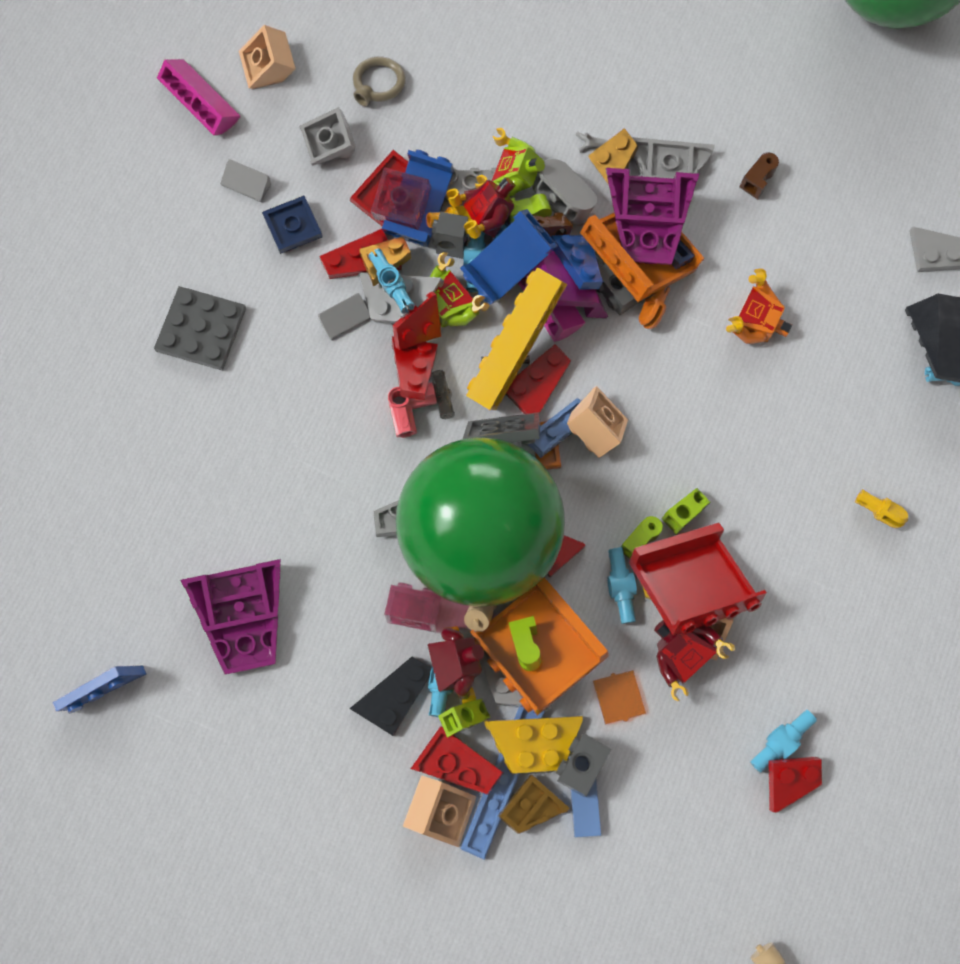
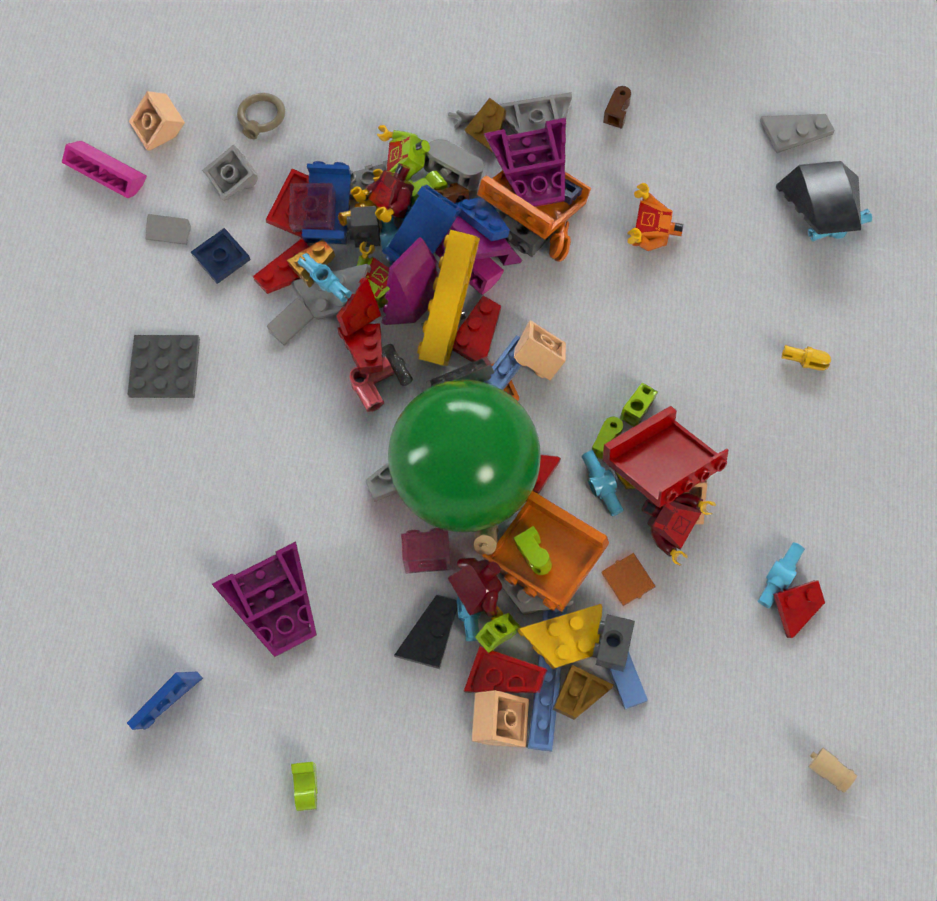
camera: 10 degrees left, 5 degrees down
(217, 822) = (305, 785): none -> lime leg
(480, 313) = (410, 284): none -> magenta wedge

